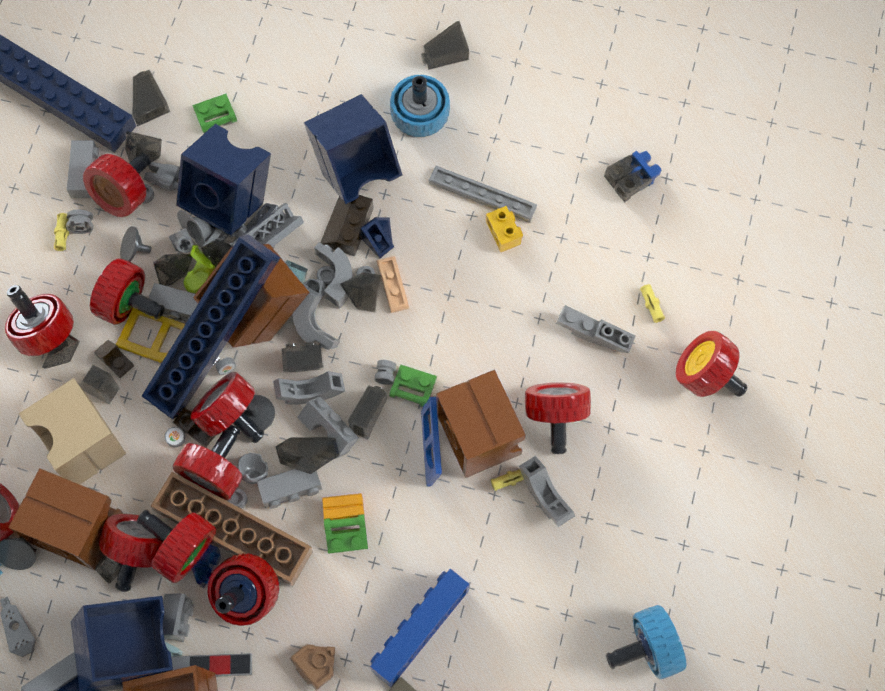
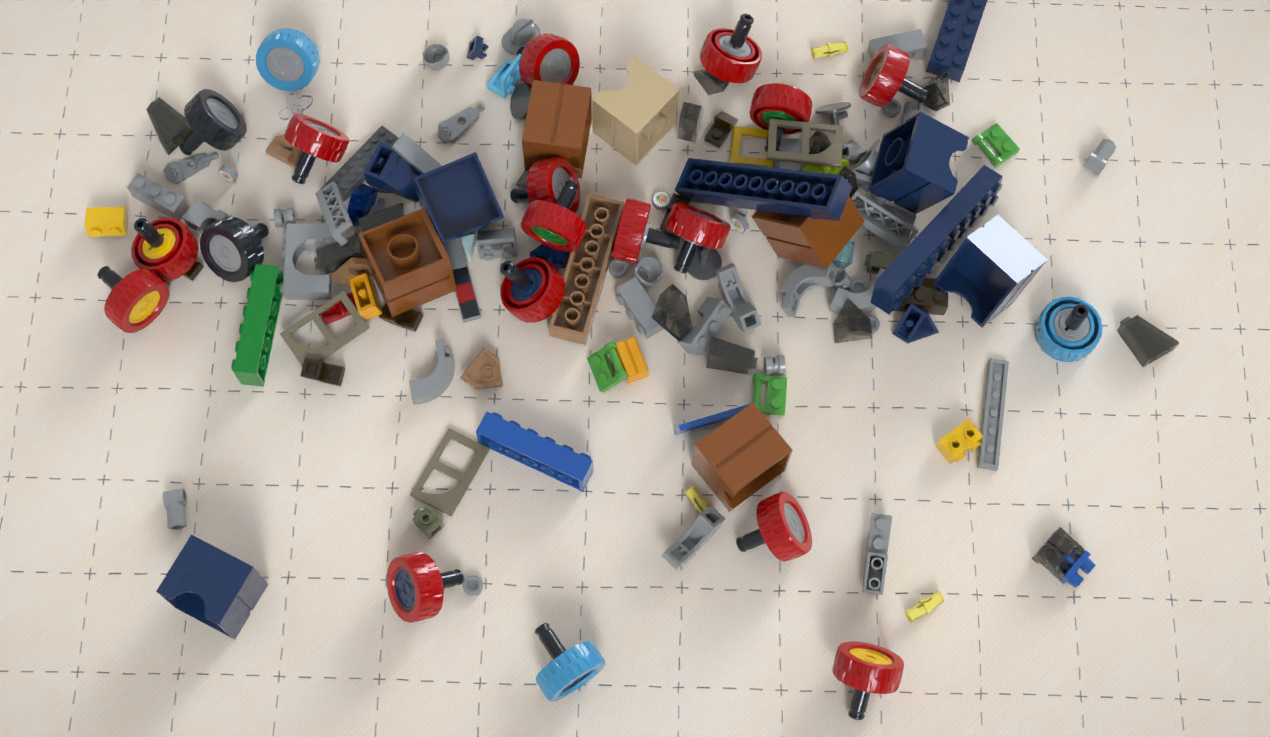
camera: 75 degrees right, 0 degrees up
(79, 221) = (843, 60): light grey wheel -> none
(147, 99) = (989, 81): clear smoke slope -> none
(188, 258) = (830, 157): none -> dark tan window
(259, 32) = (1098, 159): none -> light grey piece
(303, 357) = (763, 283): clear smoke slope -> none
(305, 248) = (878, 260): none -> olive brick
(307, 187) = (936, 240): none -> dark blue brick
(393, 284) = (868, 351): light nougat tile -> none

